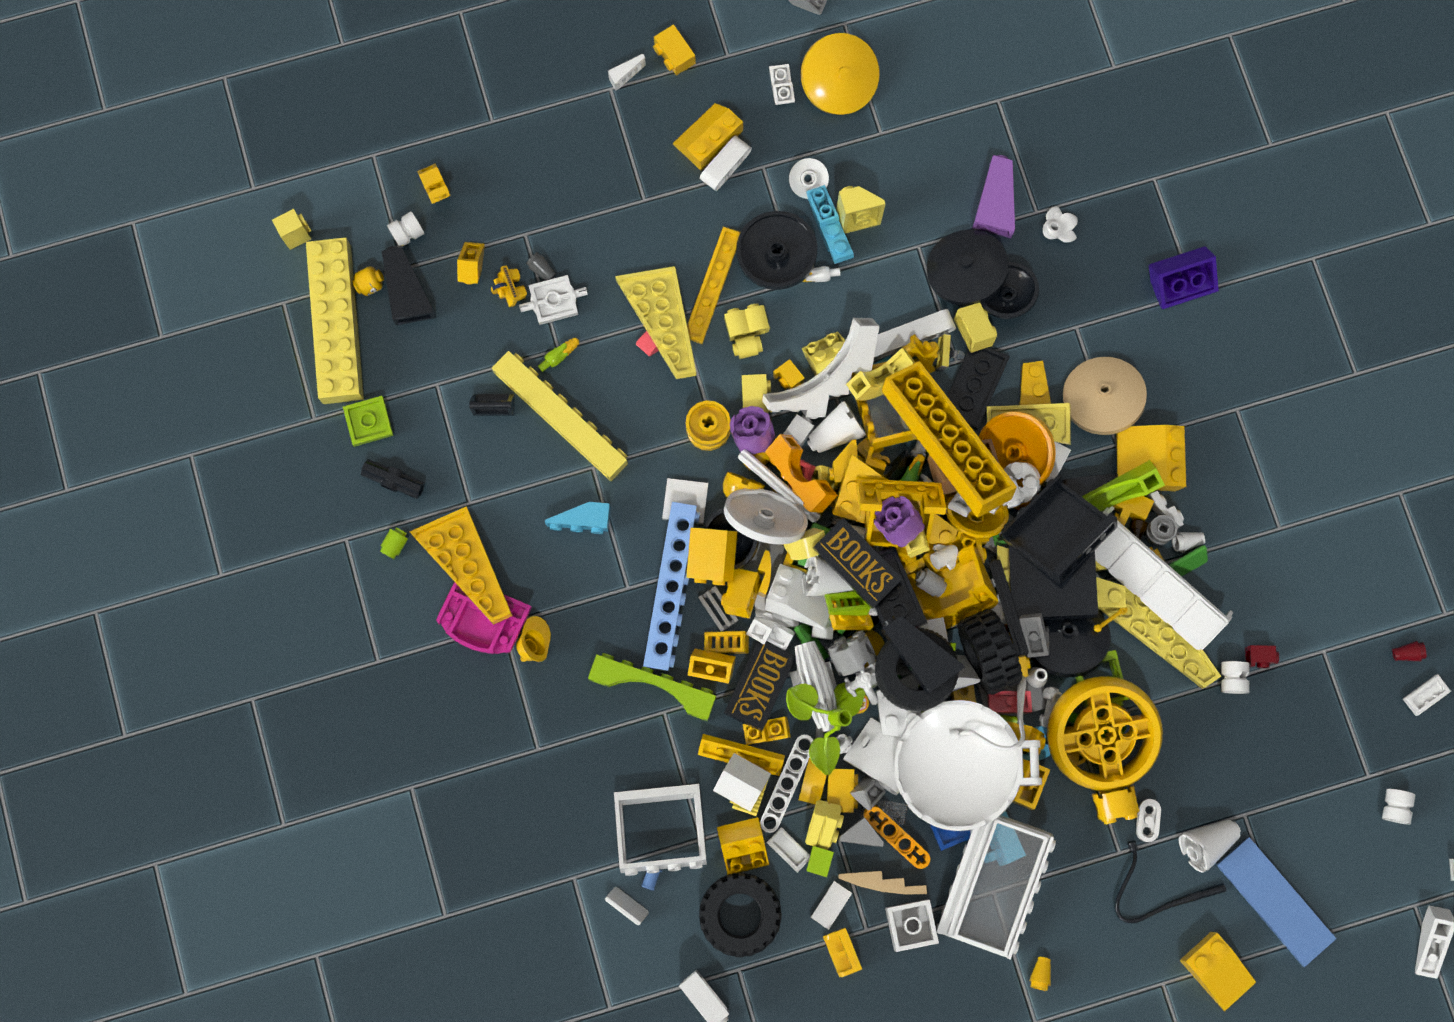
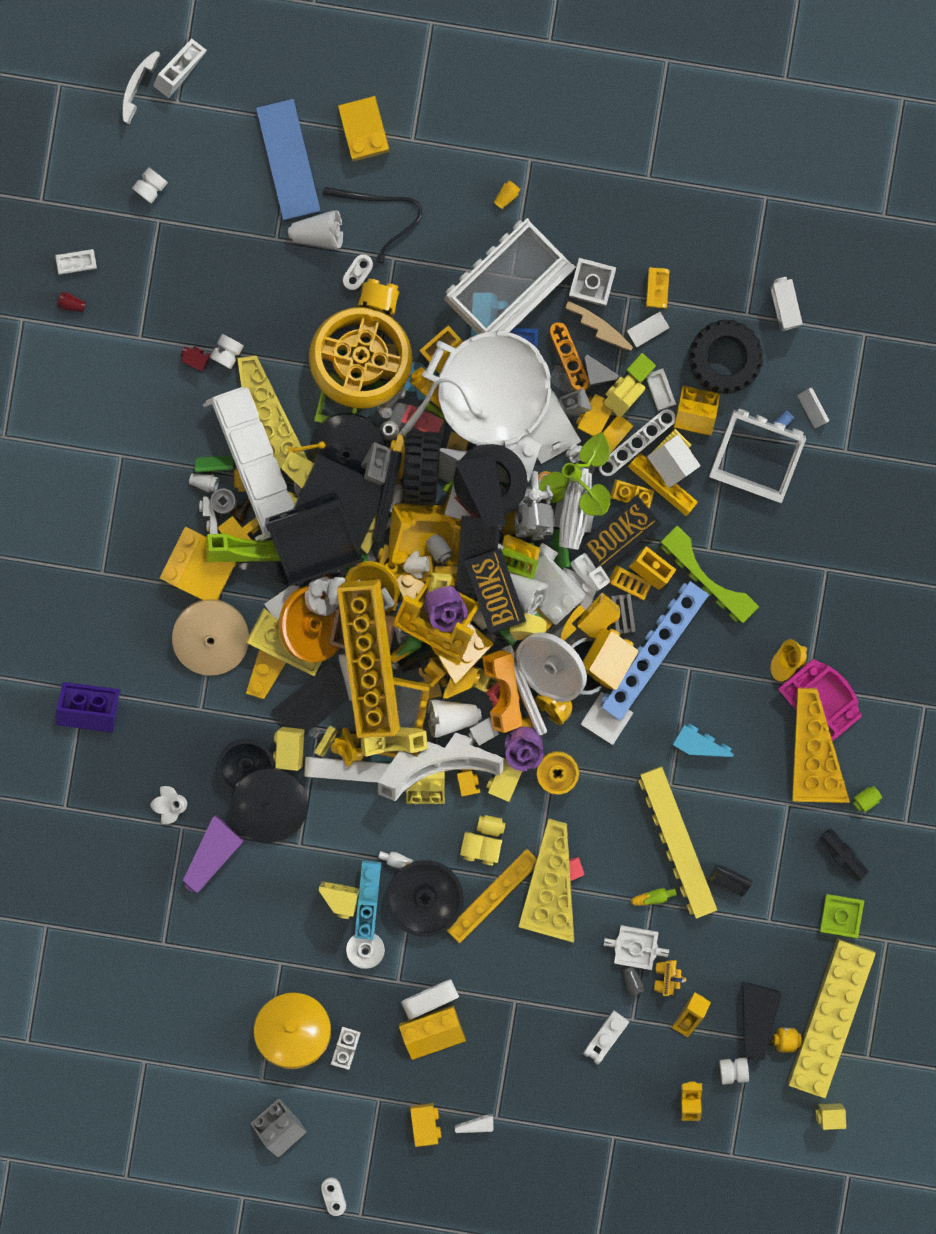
camera: 155 degrees left, 10 degrees up
(542, 206) = (606, 1036): none -> white plate

